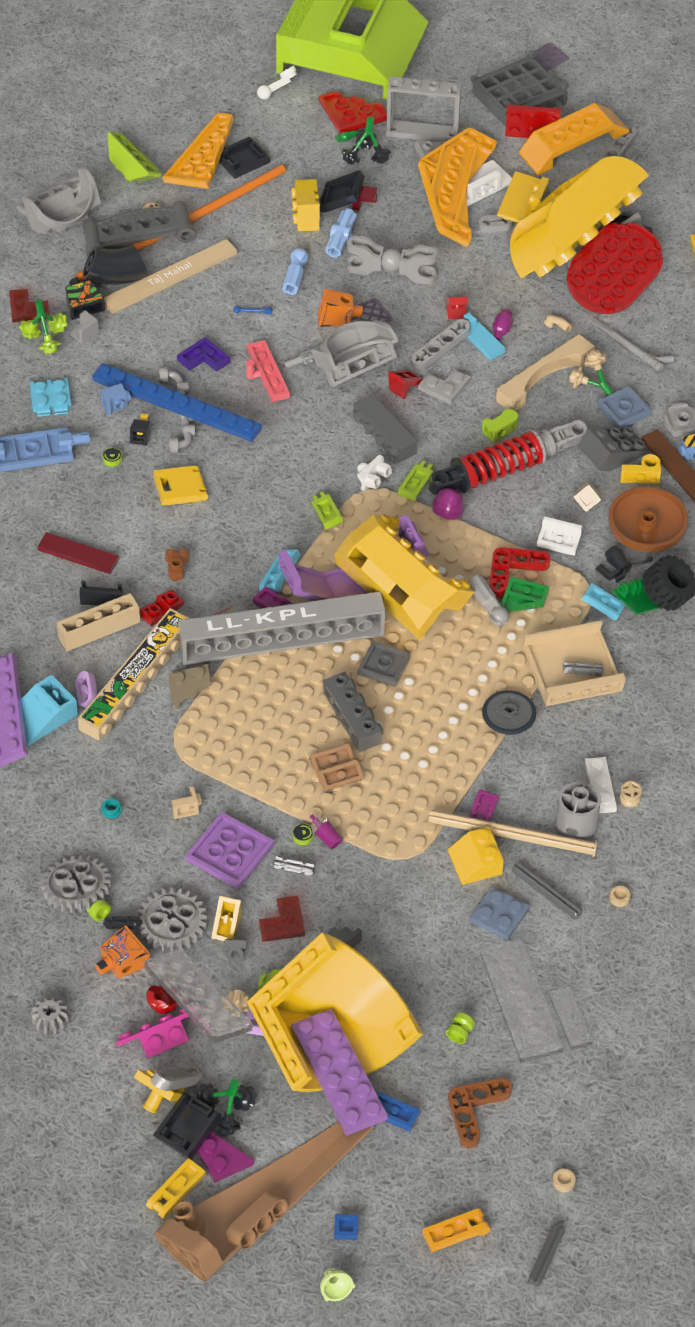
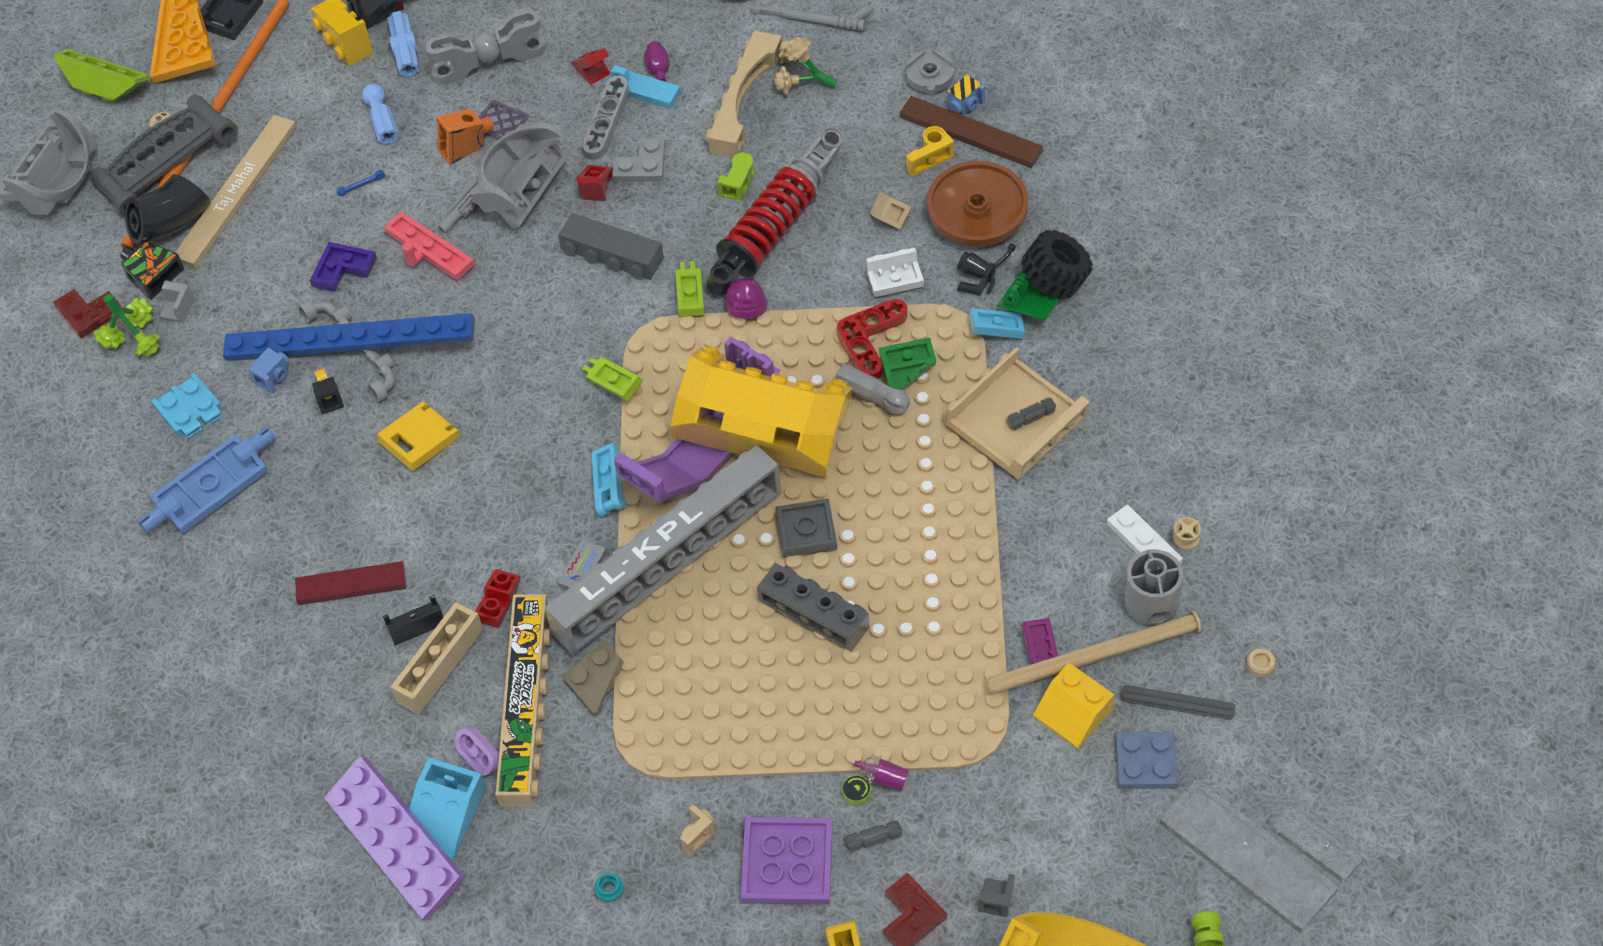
camera: 25 degrees left, 5 degrees up
(113, 457) = (313, 442): tile -> none
(176, 563) = (479, 533): dark orange plate -> none
(269, 598) = (627, 521): magenta plate -> none
(336, 767) = (841, 686): medium nougat slope -> none
(370, 473) = (630, 305): white hips -> none
(521, 713) = (989, 495): dark grey wheel -> none
(559, 321) = (716, 27): tan arm -> none
(612, 447) = (877, 140): dark grey slope -> none
(624, 407) = (857, 90): sand blue plate -> none

